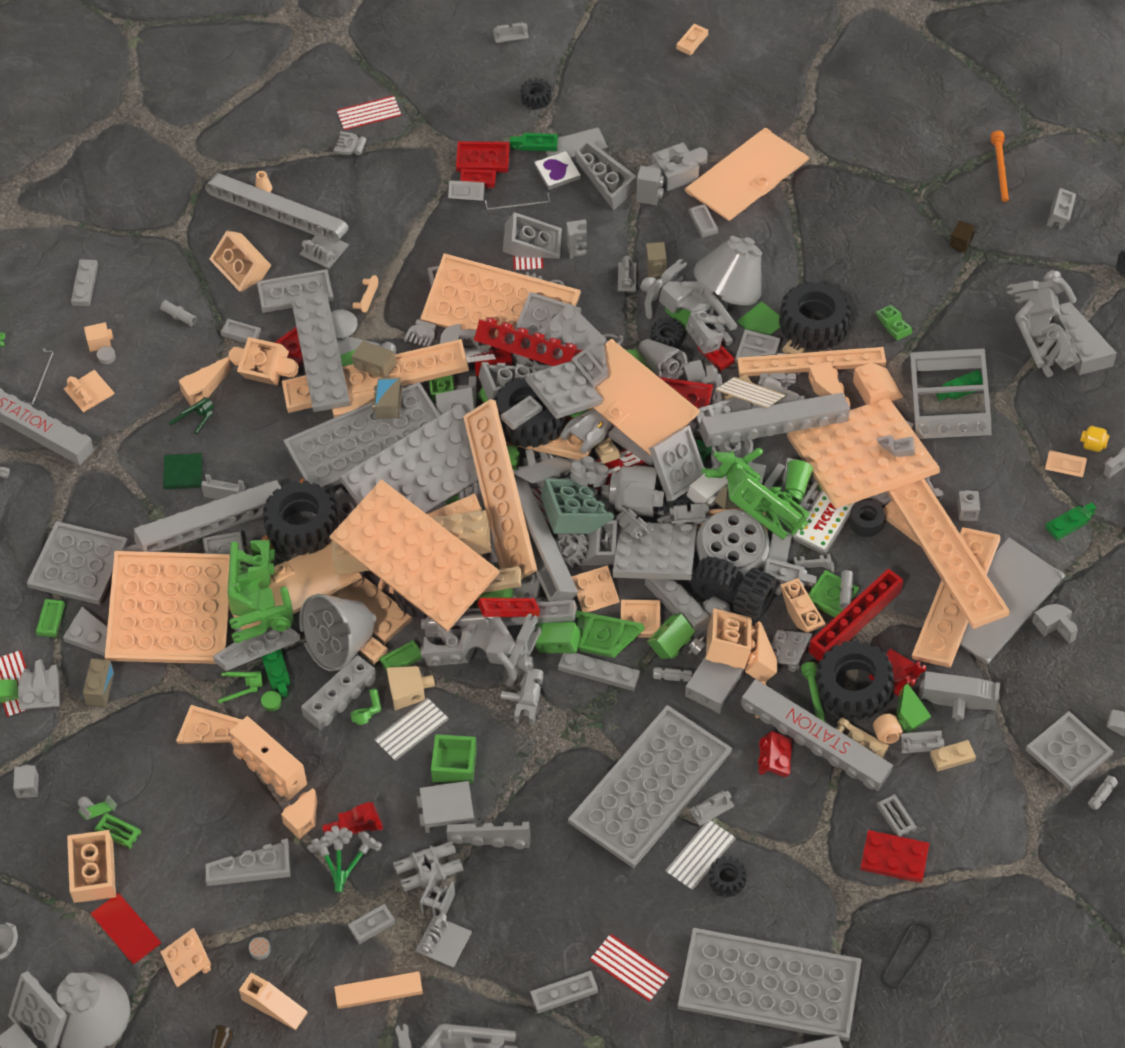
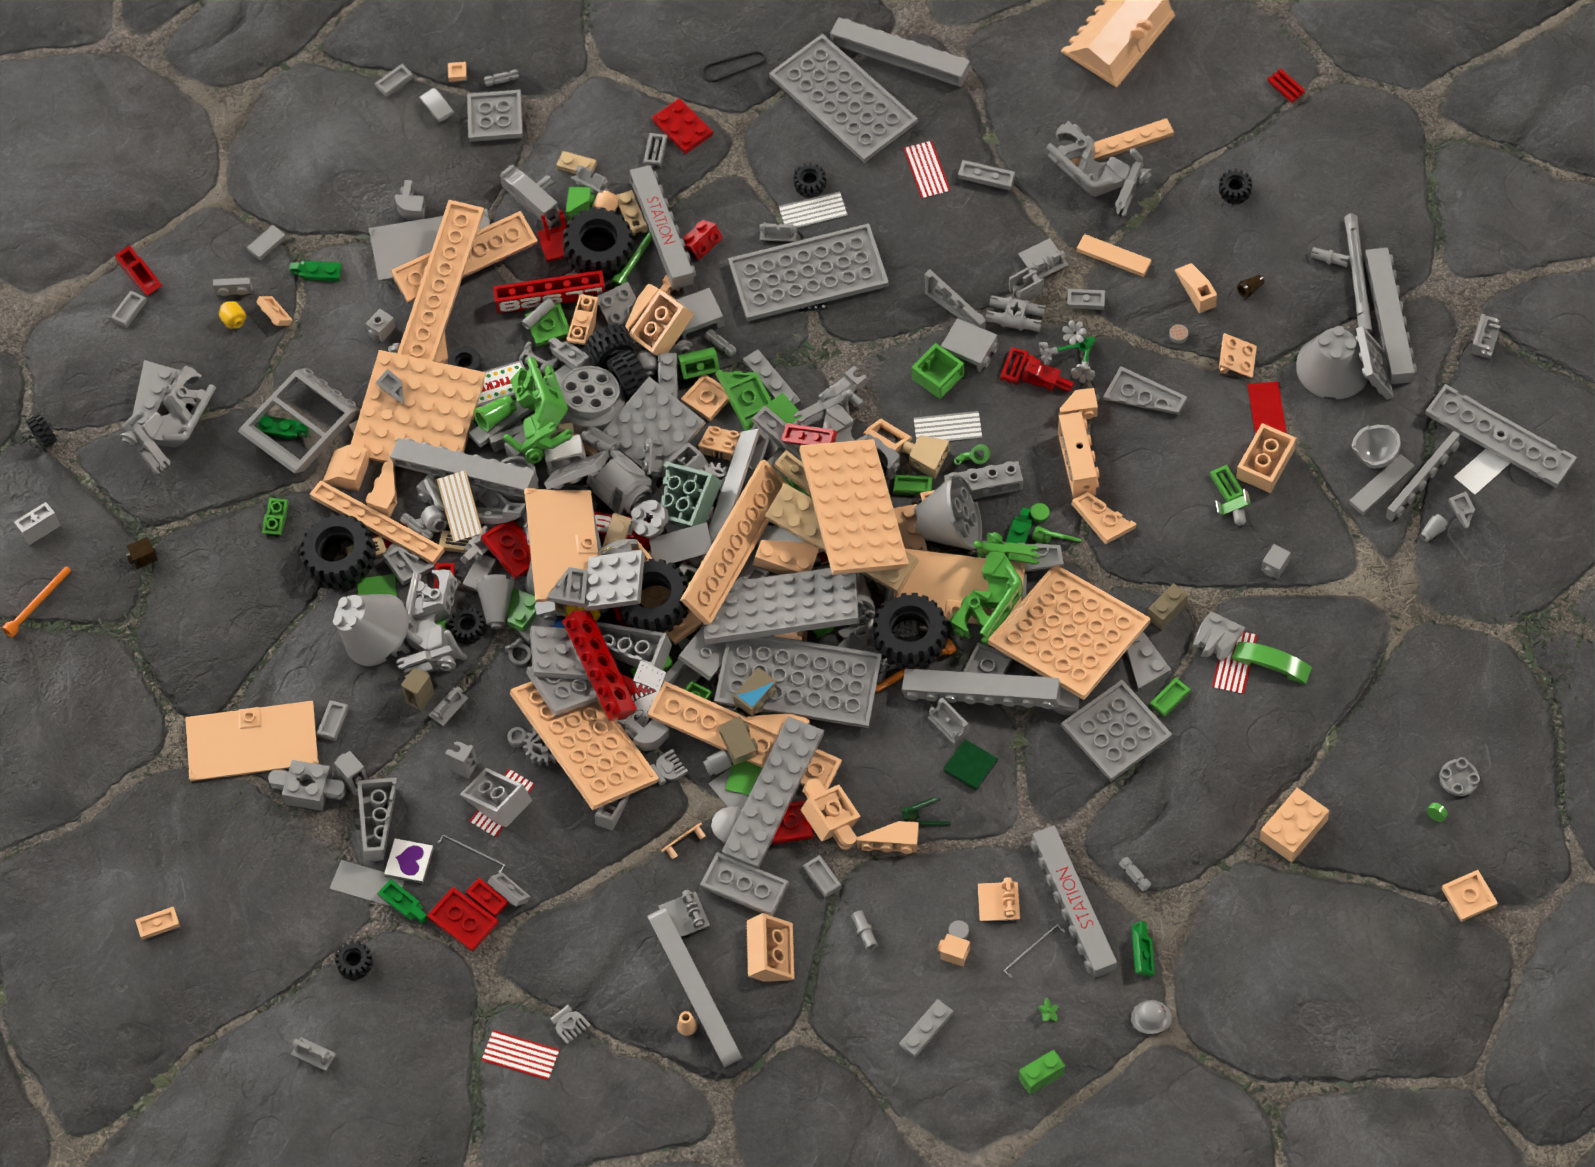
camera: 140 degrees left, 5 degrees up
(397, 835) = (1010, 378): none -> red tile
(454, 670) = (874, 428): none -> light nougat tile
(521, 412) = (666, 579): light grey tile -> none

